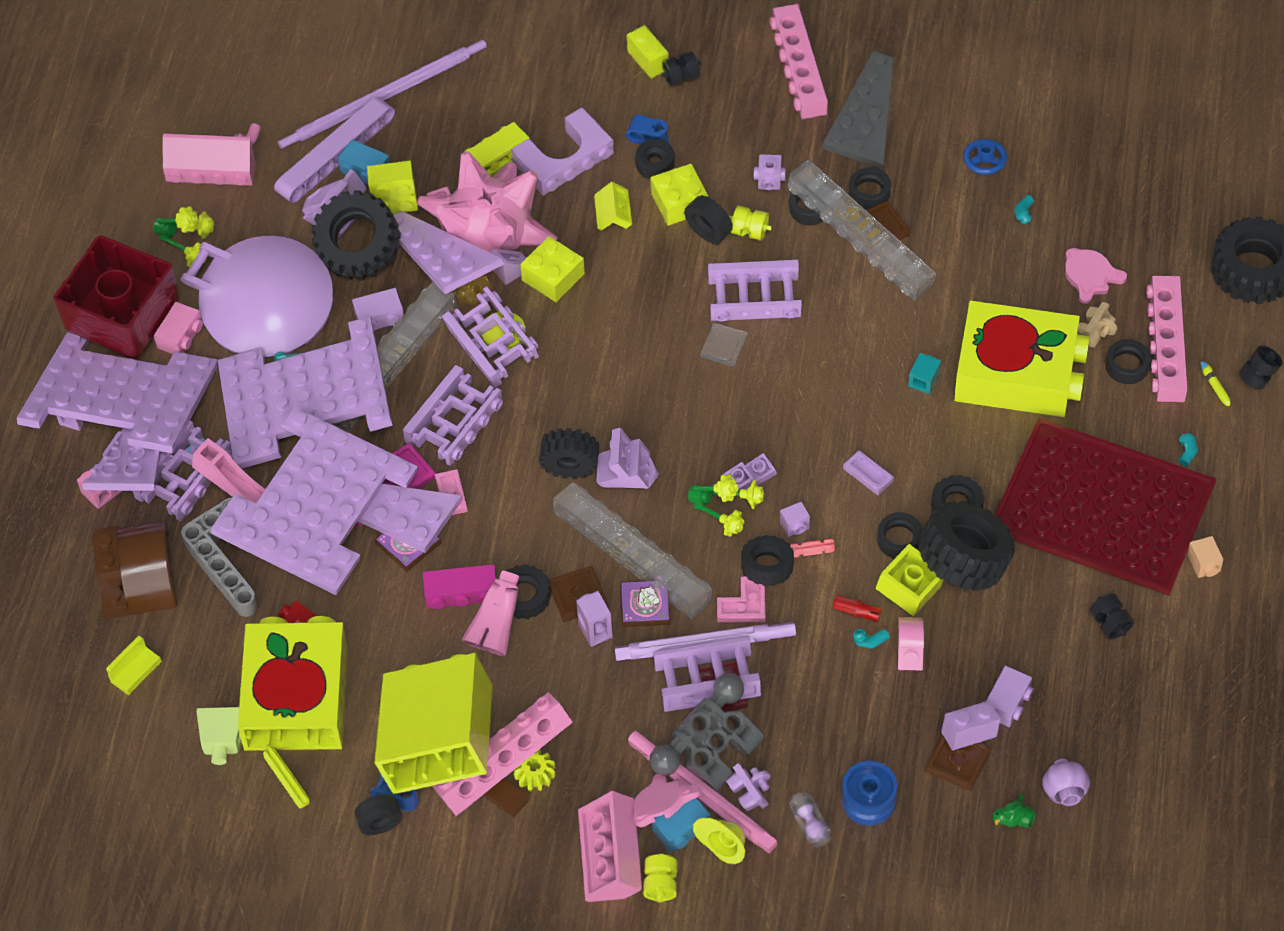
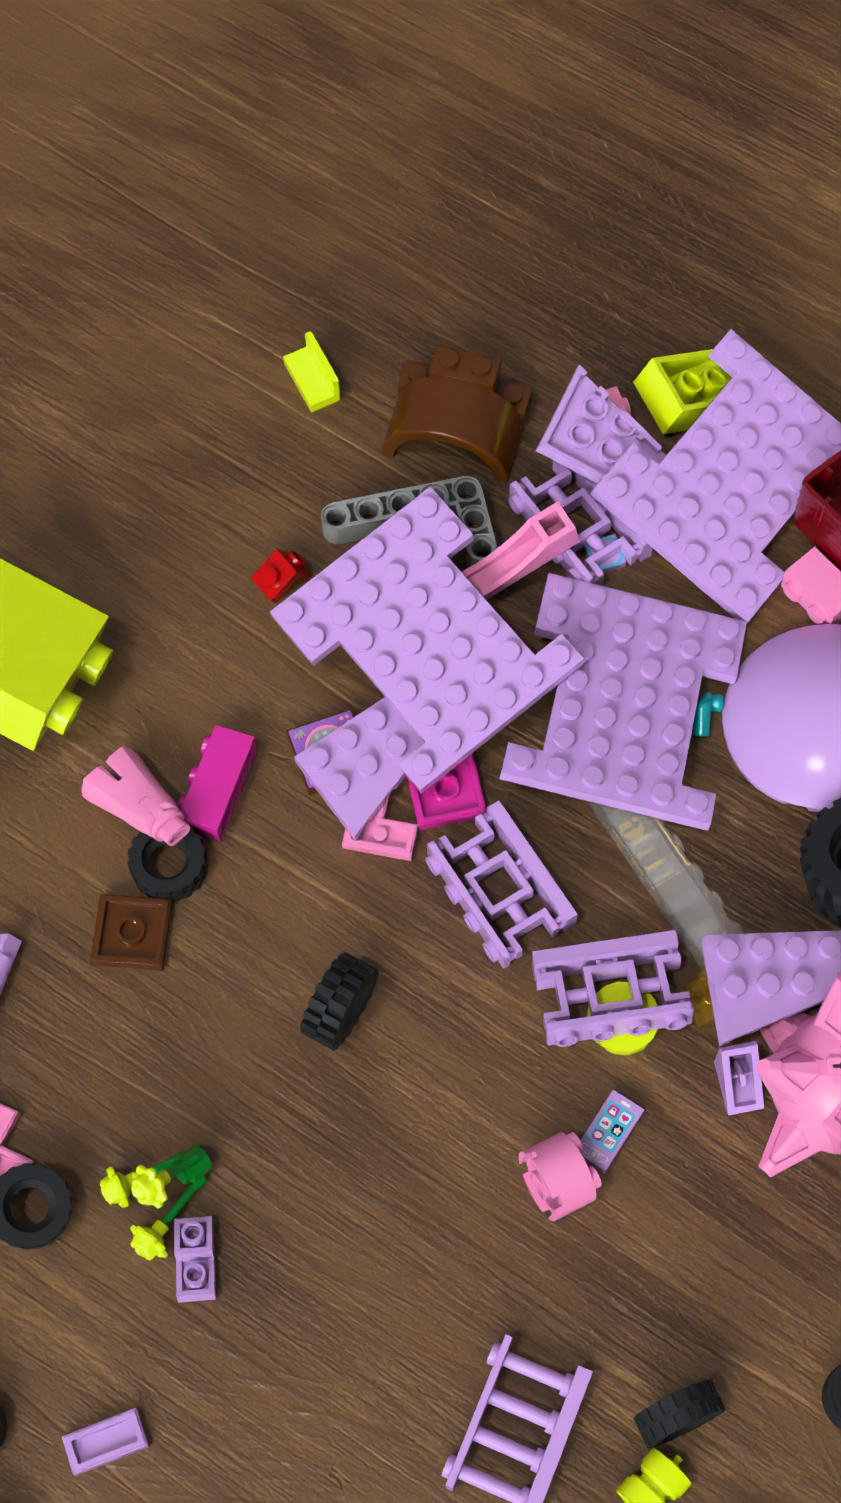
camera: 115 degrees right, 10 degrees up
(58, 446) = (680, 388): none -> neon yellow slope
(219, 732) = (165, 433): yellowish green torso -> none
(286, 777) = (65, 486): neon yellow axle -> none
(293, 685) = (173, 526): neon yellow brick -> none
(382, 308) = (735, 856): lavender brick -> none
(552, 269) = (700, 1132): neon yellow brick -> none
(572, 314) = (609, 1130): none -> tile
(594, 618) = (61, 921): lavender brick -> none
(612, 317) = (559, 1175): none -> bright pink brick
(613, 206) = (787, 1284): neon yellow panel -> none
(626, 464) = (290, 1082): lavender piece -> none
(632, 549) = (149, 1026): clear brick -> none
(643, 605) = (67, 1013): tile -> none
(675, 191) = (764, 1399): neon yellow brick -> none
(723, 344) = (448, 1336): clear piece -> none
(794, 519) = (76, 1282): lavender plate -> none
(813, 547) = (24, 1286): coral axle -> none

